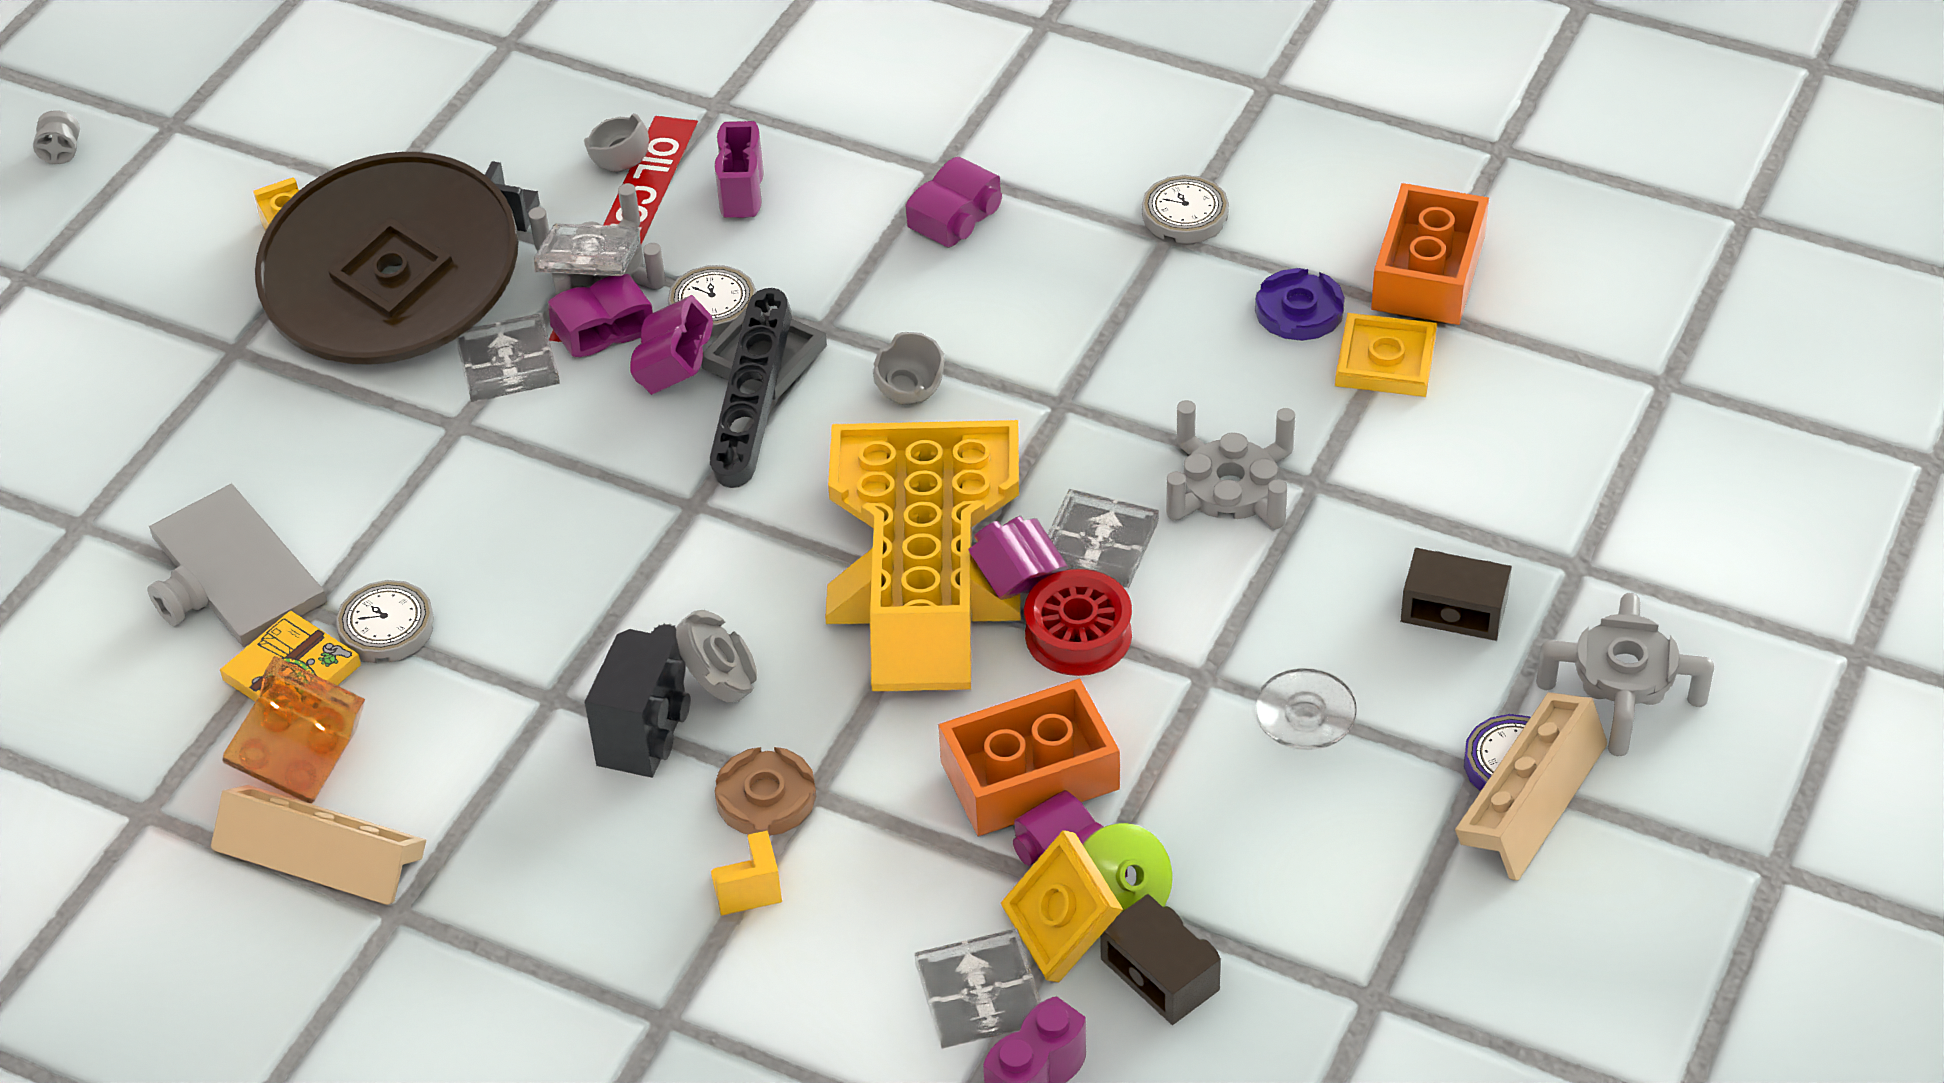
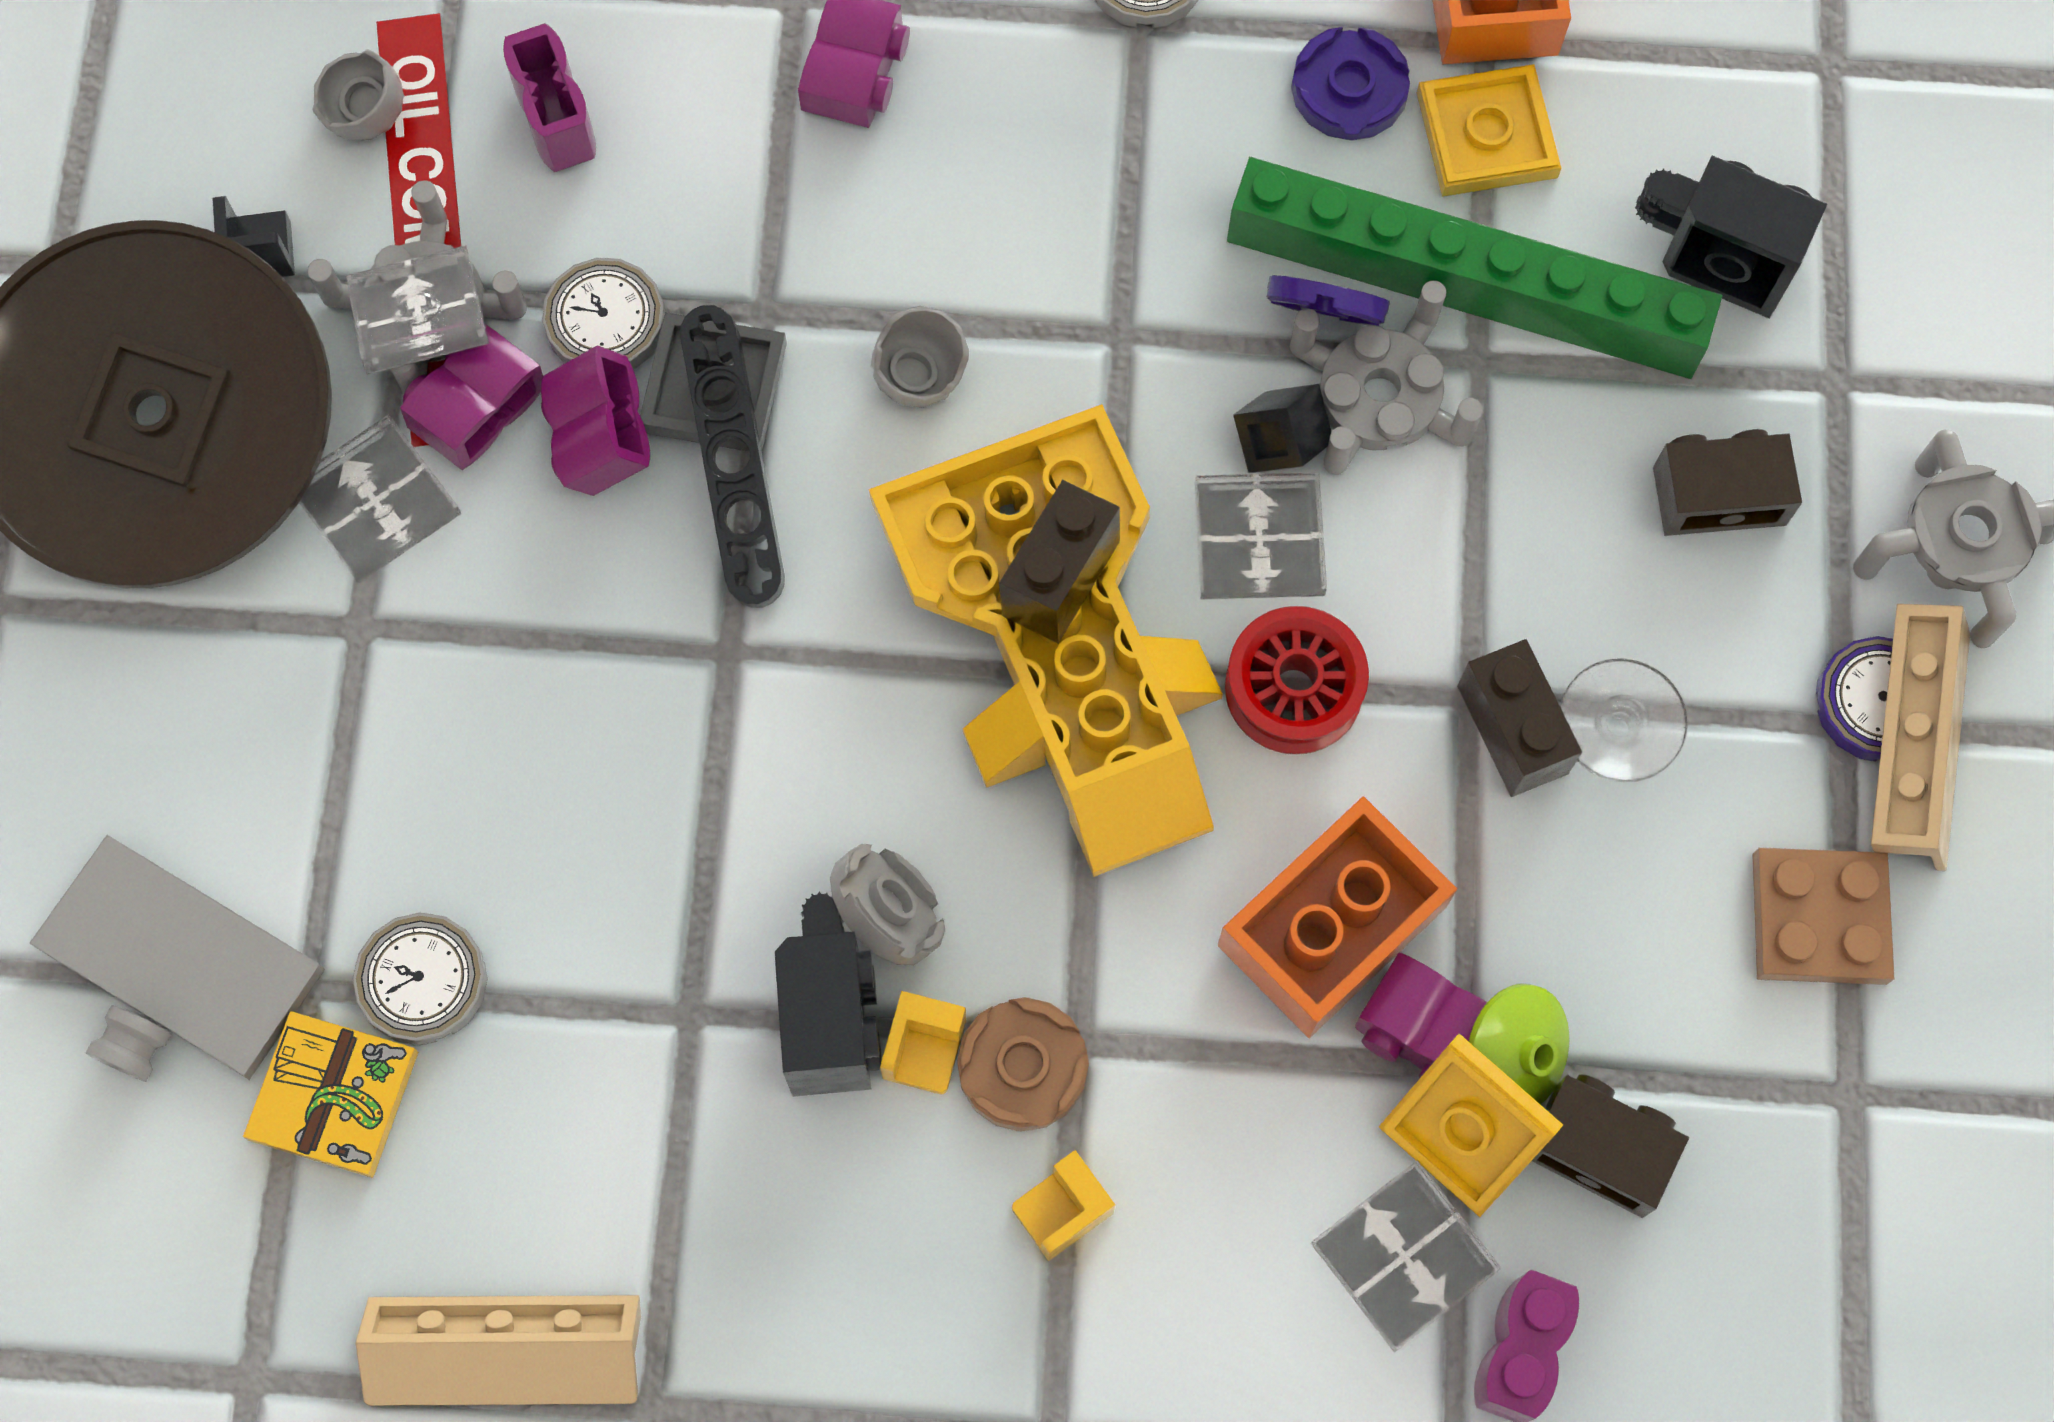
camera: 25 degrees left, 25 degrees up
(295, 731) = (398, 1216): clear orange bracket -> none
(698, 749) = (923, 1043): none -> yellow panel
(932, 480) = (1060, 561): none -> dark brown brick
(1015, 556) = (1199, 626): magenta brick -> none
(1141, 473) = (1283, 428): none -> black panel
(1212, 403) = (1327, 300): none -> dark purple tile
(1227, 684) = (1519, 718): none -> dark brown brick
(1332, 422) = (1480, 266): none -> green brick
(1403, 877) = (1823, 916): none -> medium nougat plate
(1530, 442) = (1732, 231): none -> black hinge

